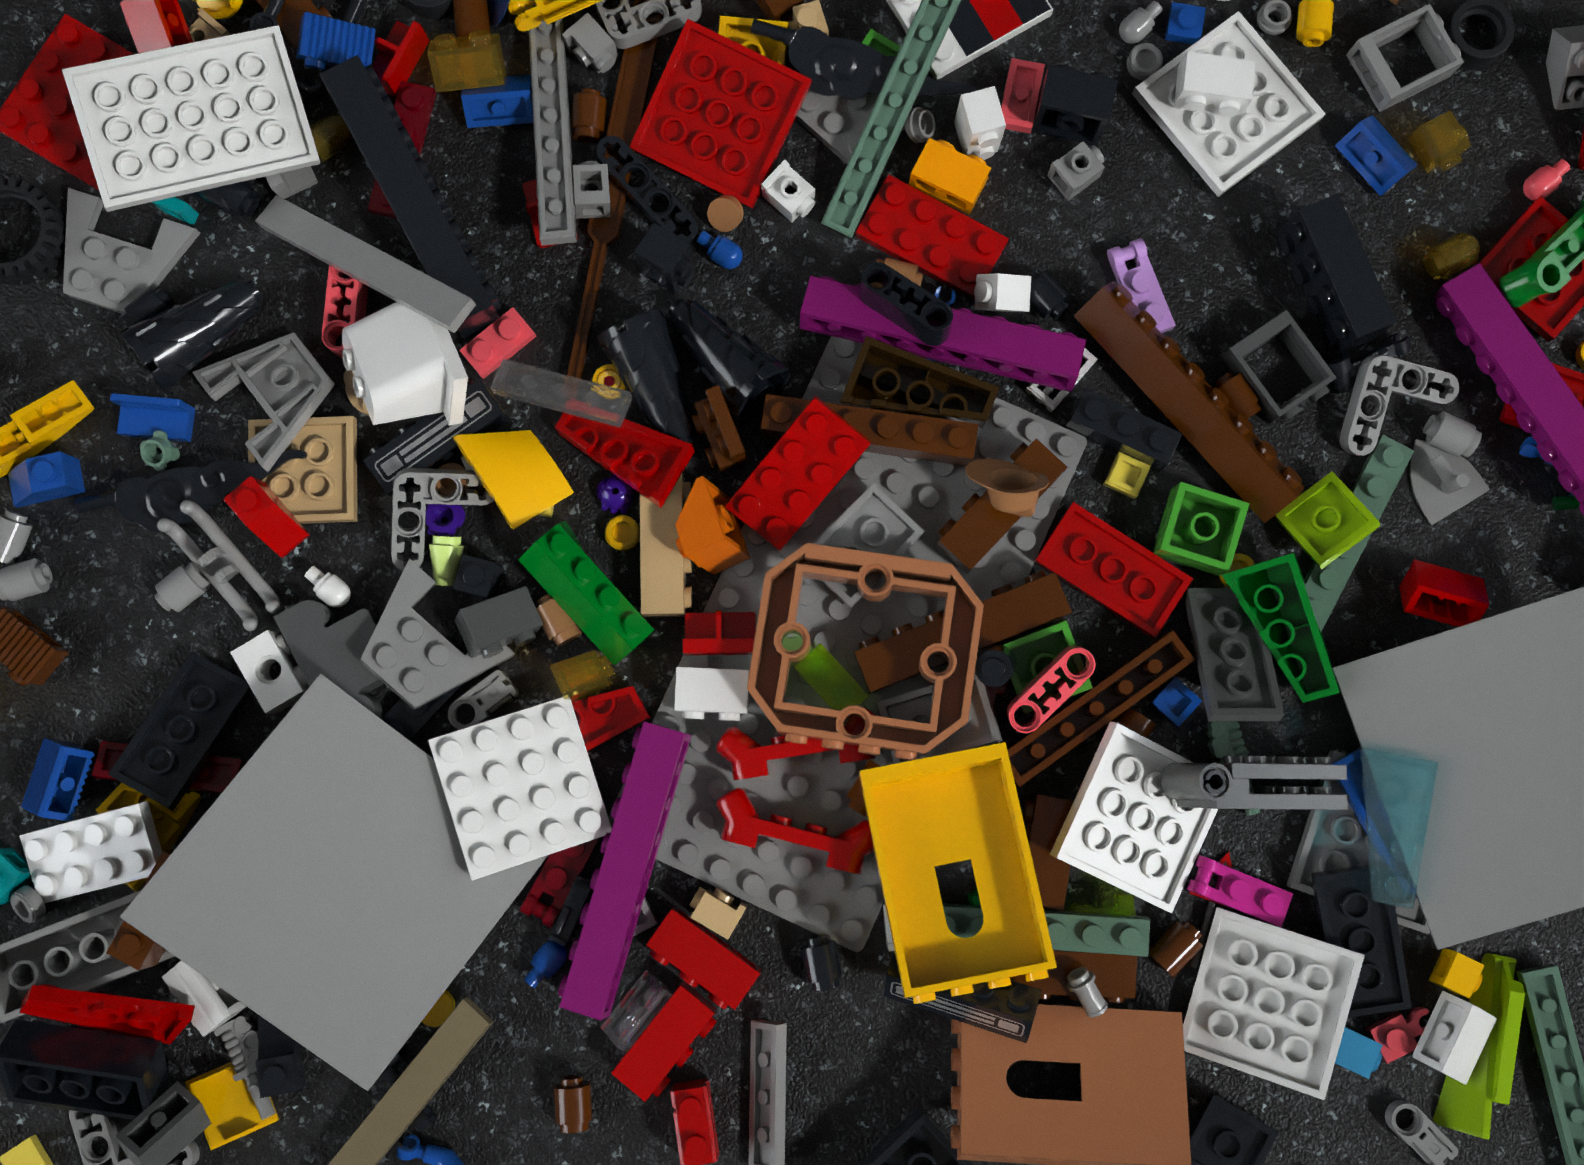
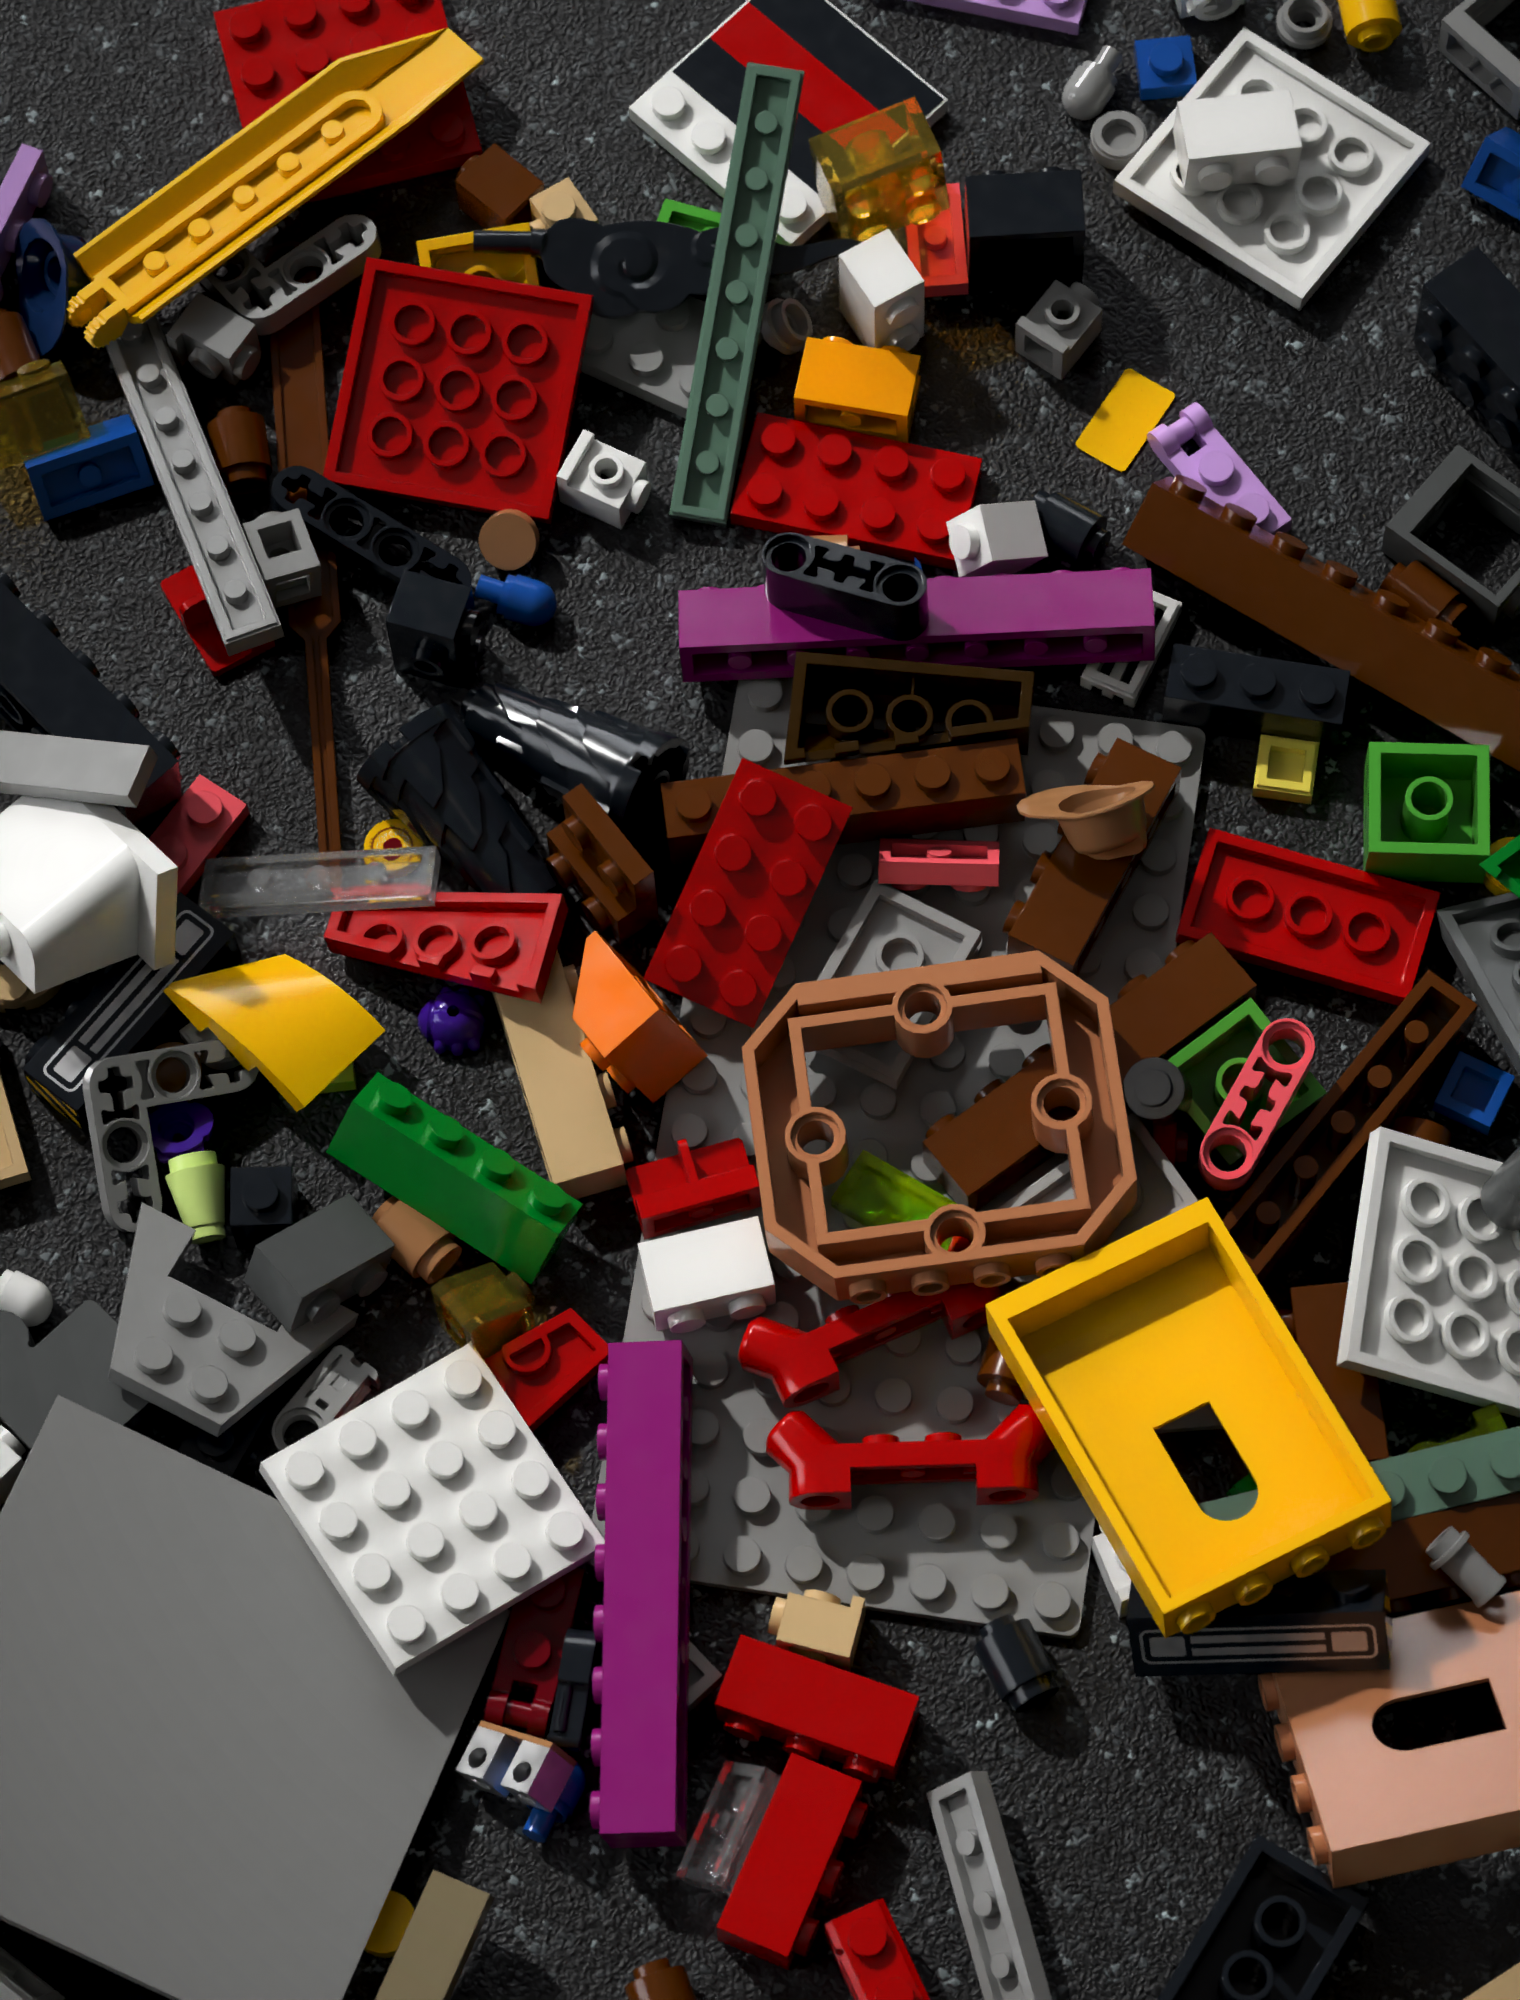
camera: 15 degrees left, 15 degrees down
(529, 943) = (516, 1763): none -> flat silver piece
(622, 533) = (482, 1079): yellow tile -> none
(912, 482) = (921, 862): none -> coral plate
(1000, 48) = (880, 172): none -> clear yellow brick
(1097, 236) = (1124, 420): none -> yellow sticker

